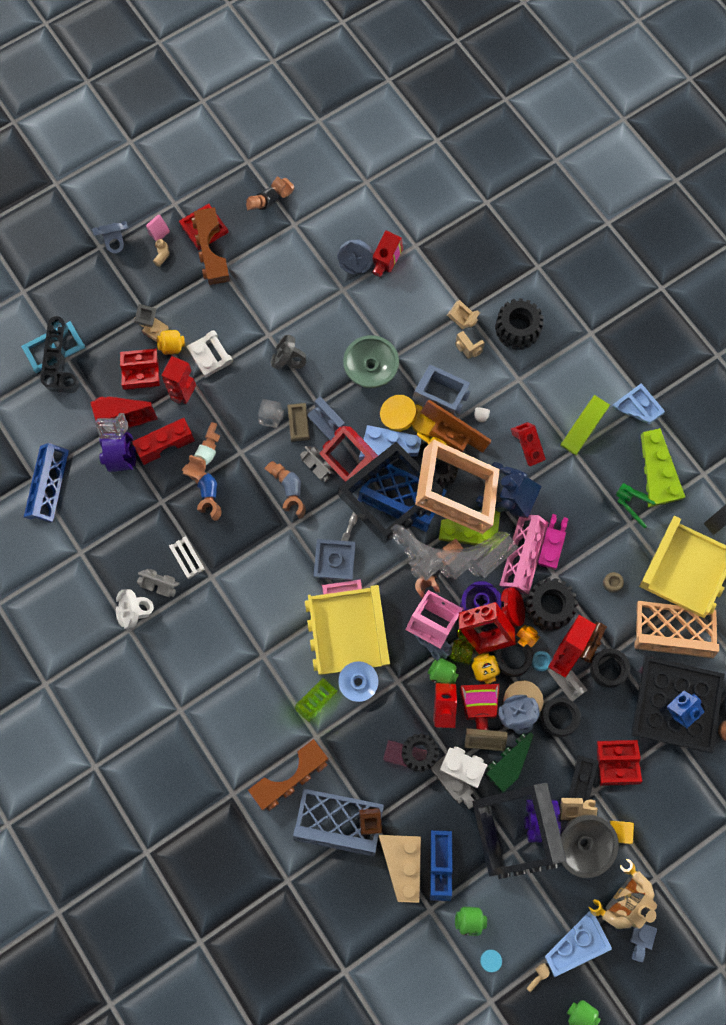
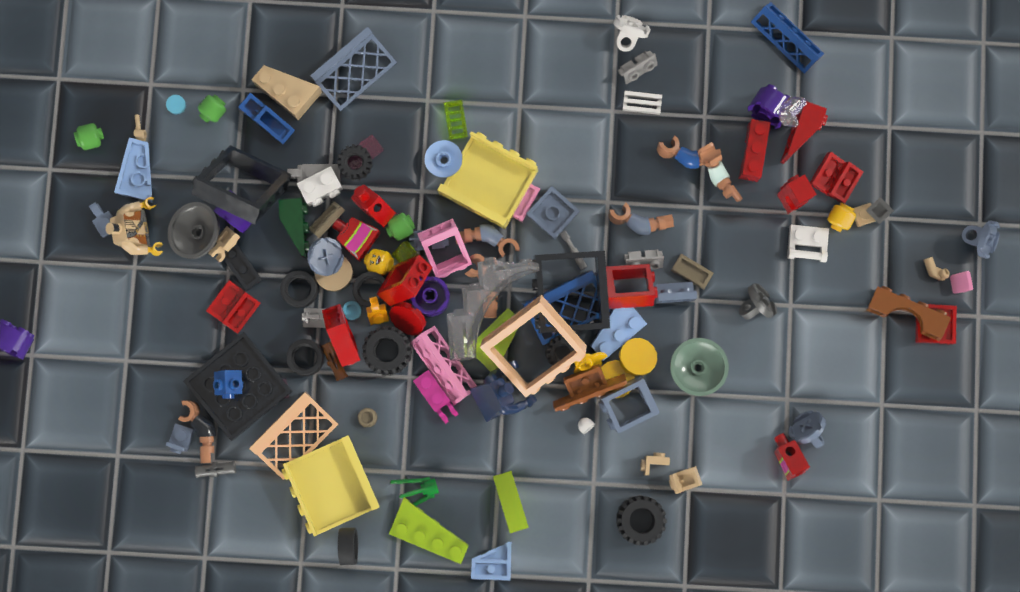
camera: 125 degrees right, 10 degrees up
(37, 368) = (922, 122): medium azure window -> none
(59, 354) = (894, 118): black beam -> none
(269, 196) = (924, 400): nougat piece -> none
(269, 792) = (413, 36): dark orange arch -> none
(270, 413) = (715, 252): clear brick -> none
(370, 821) = (335, 91): reddish brown slope -> none
(392, 596) = (488, 234): none -> piece
(529, 442) = (531, 443): red bracket -> none
(624, 831) = (184, 267): yellow slope -> none

